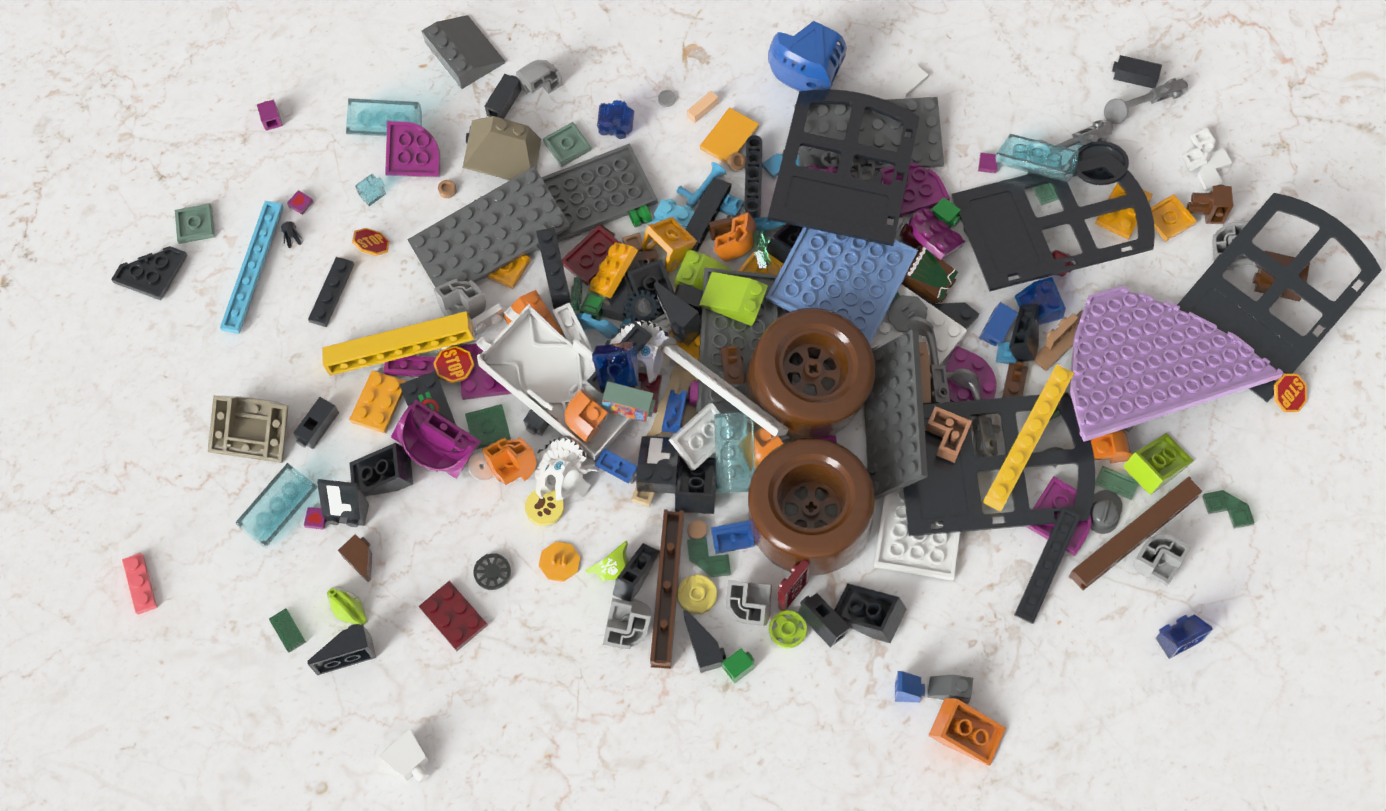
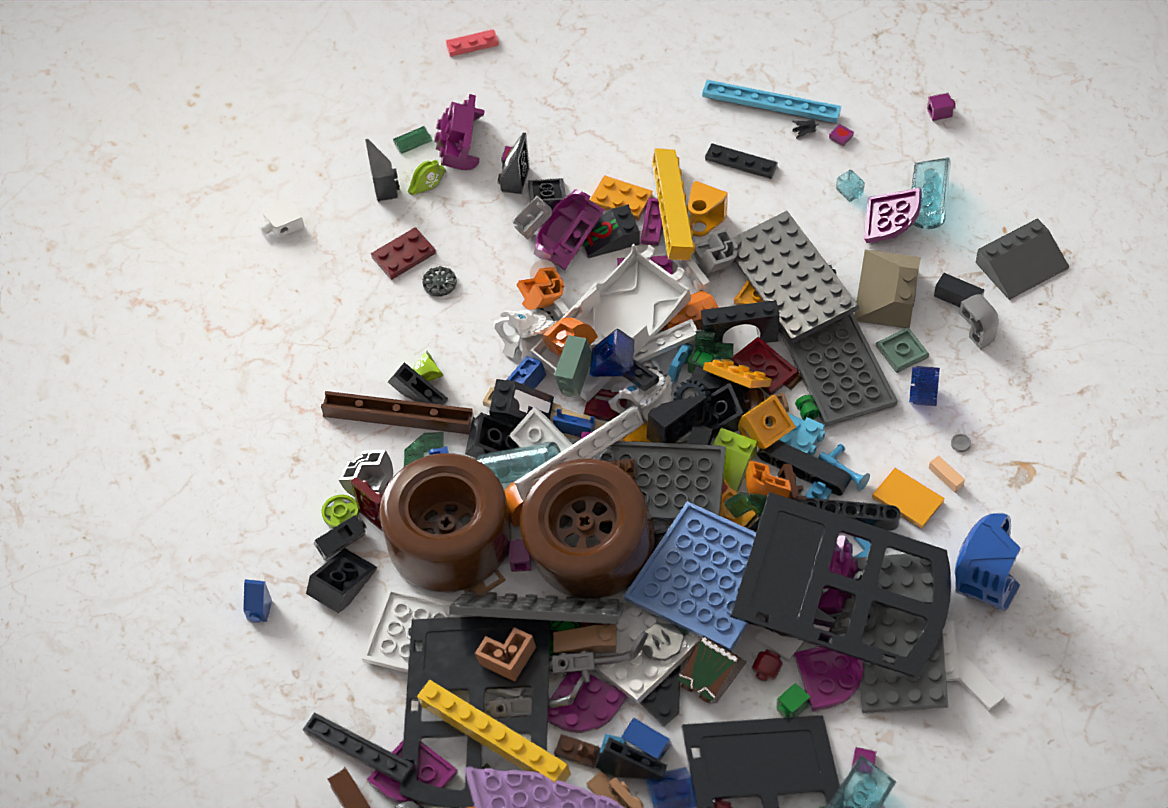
camera: 95 degrees right, 10 degrees down
(151, 273) = (770, 31): black plate -> none
(194, 223) = (822, 60): sand green tile -> none
(248, 428) = (605, 102): dark tan slope -> none
(276, 505) = (517, 117): clear light blue brick -> none
(286, 574) = (454, 128): none -> magenta piece
(315, 423) = (602, 151): black brick -> none
(358, 555) = (467, 184): reddish brown slope -> none
(370, 241) = (790, 185): piece -> none
(398, 310) = (707, 206): none -> light orange hose
(416, 477) = (532, 217): none -> light grey hinge
(447, 188) = (851, 248): medium nougat tile -> none
(453, 364) = (657, 242): piece -> none
(488, 425) = (582, 278): clear green tile -> none
(534, 440) = (560, 309): none -> white plate
(545, 510) = (487, 318): light yellow tile -> none
(559, 561) = (441, 333): light orange piece -> none
(627, 623) = (365, 375): light grey brick -> none
(694, 599) = (389, 437): light yellow tile -> none
(697, 529) = (453, 441): medium nougat tile -> none
(705, 646) = (334, 439): black slope -> none
(733, 297) = (687, 471): lime slope -> none
(736, 161) = (872, 497): medium nougat tile -> none
(738, 665) = (310, 465): green brick -> none
(935, 234) = (759, 679): magenta plate -> none
(950, 687) = (250, 645): dark grey slope -> none
(967, 731) = (205, 652): orange slope -> none

